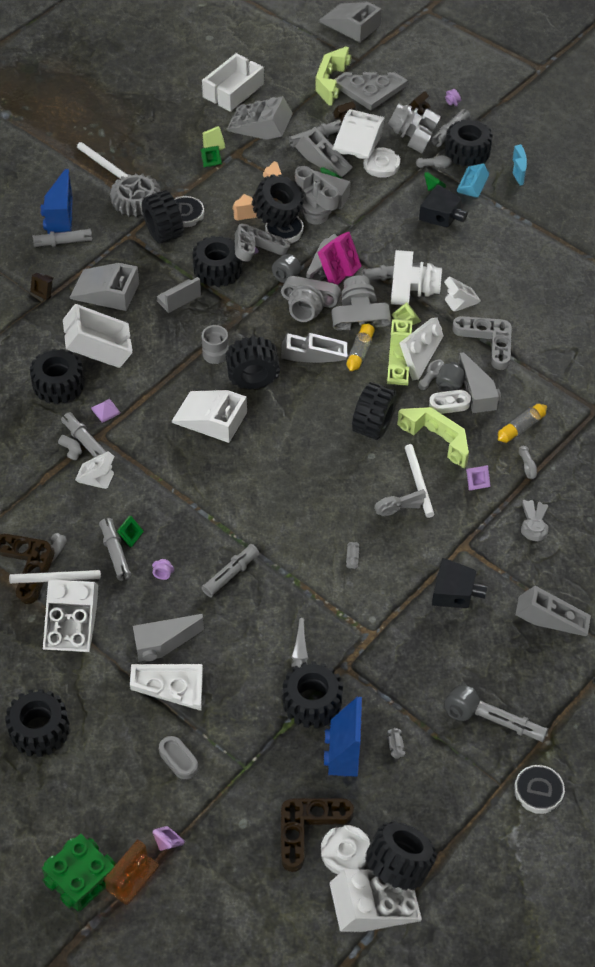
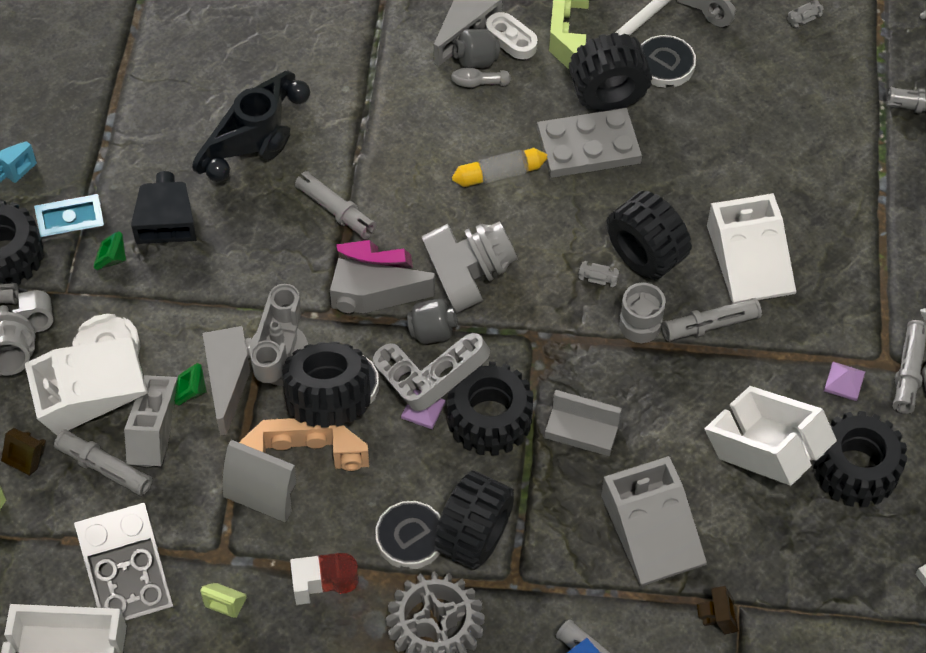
camera: 125 degrees left, 5 degrees up
(191, 368) = (713, 319): none -> light grey pin
(193, 172) = (323, 574): none -> leg
(211, 156) = (262, 576): green slope -> none
(252, 165) = (258, 480): none -> light grey slope
(313, 349) = (548, 212): light grey slope -> none
(342, 395) = (589, 142): none -> light grey plate
(359, 305) = (436, 193): light grey beam -> none
(374, 464) = (669, 60): none -> black tile
(397, 369) = (525, 94): yellowish green slope -> none
(407, 313) = (402, 153): yellowish green slope -> none
(408, 278) = (339, 156): white beam -> none
(420, 346) = (446, 93): white wing -> none
(439, 162) = (54, 275): light grey piece -> none
(460, 295) = (323, 109): white slope -> none
(468, 258) = (251, 125): none -> black piece
(495, 334) = (361, 47): light grey beam -> none

